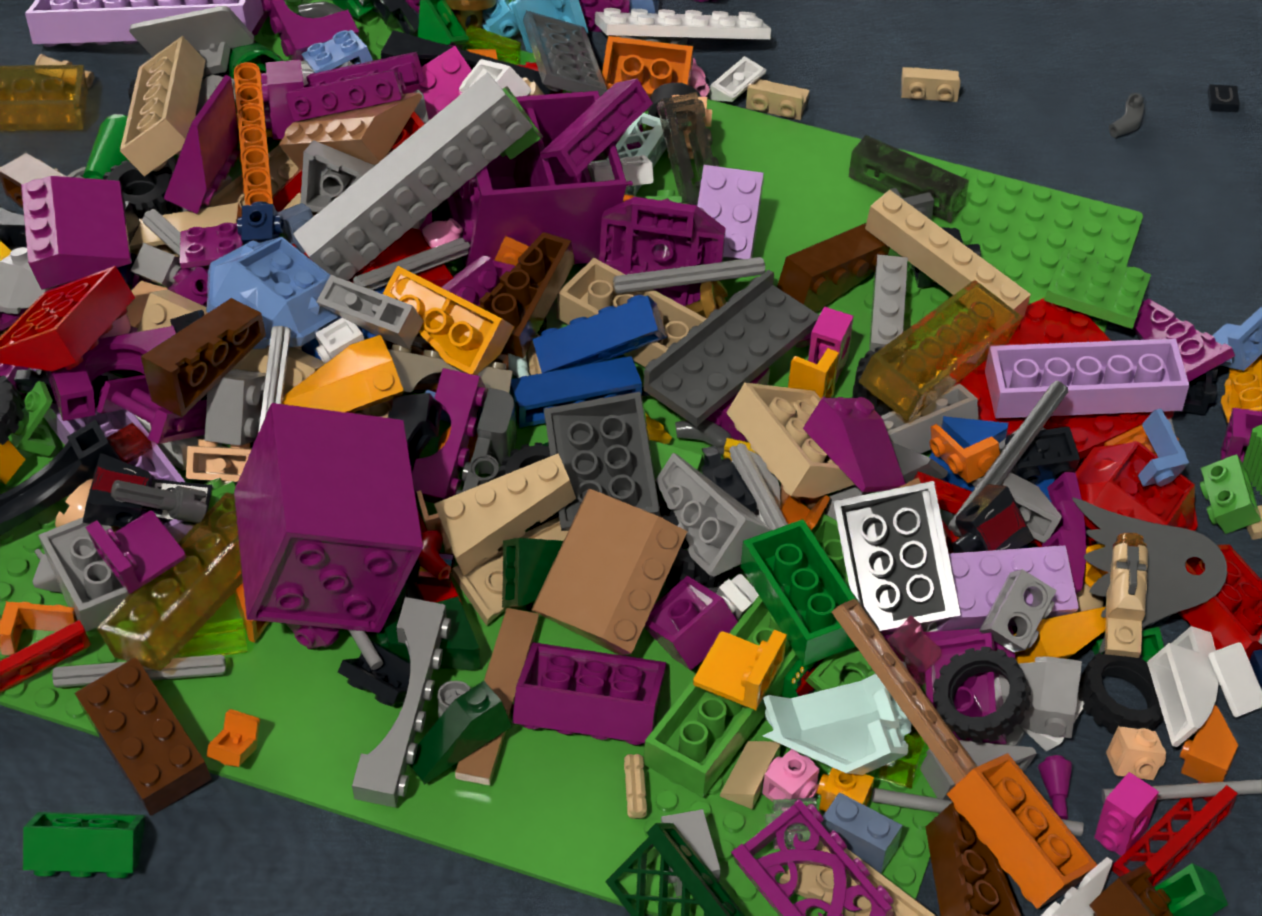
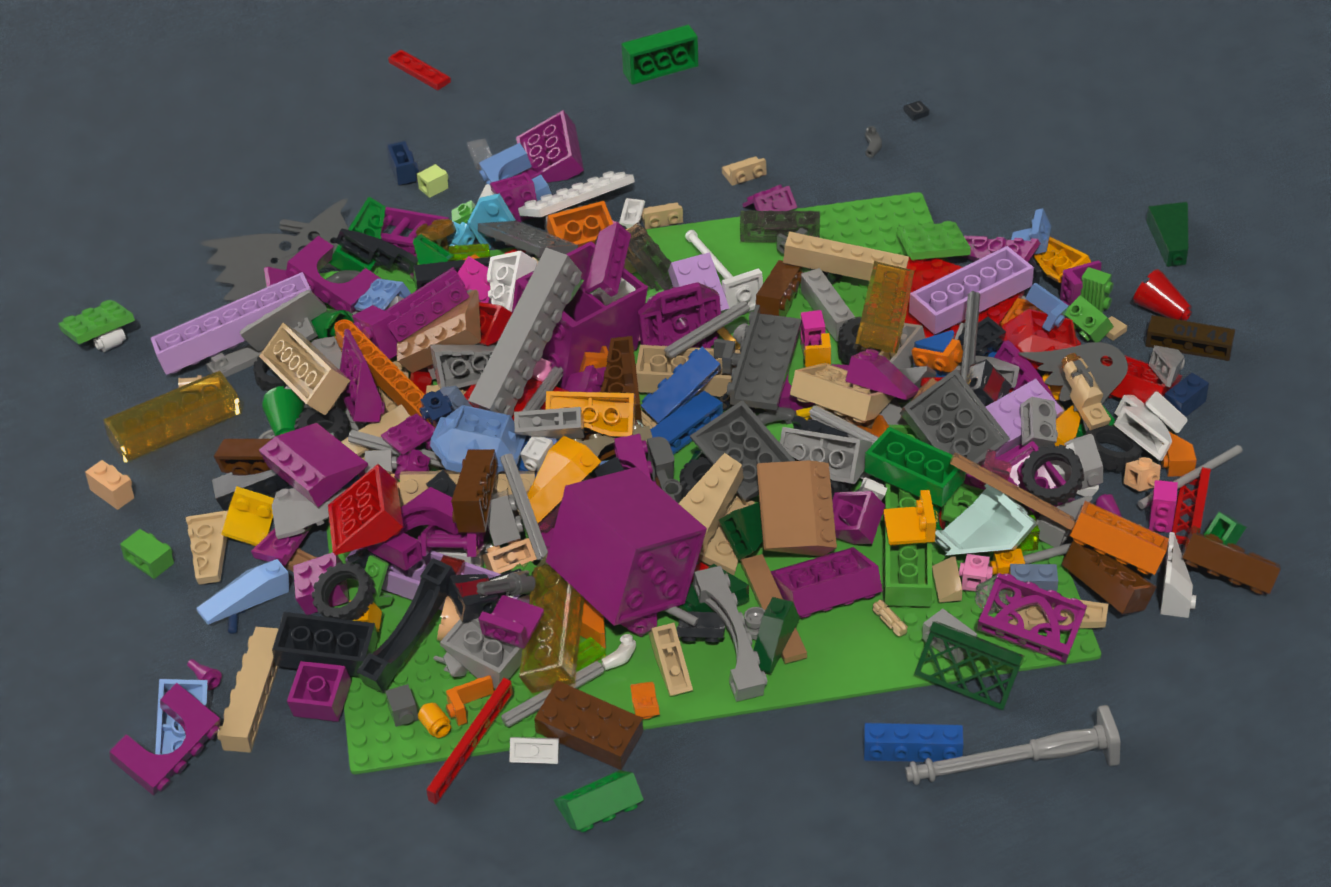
camera: 25 degrees left, 5 degrees down
(61, 734) = (534, 750): none -> white plate
(116, 63) = (234, 361): none -> light grey hinge
(262, 661) = (620, 655): none -> white arm
(310, 700) = (670, 659): none -> tan slope
(686, 315) = (726, 350): none -> dark grey bracket
(782, 237) = (736, 288): none -> white tile
(929, 143) = (774, 199): none -> magenta bracket

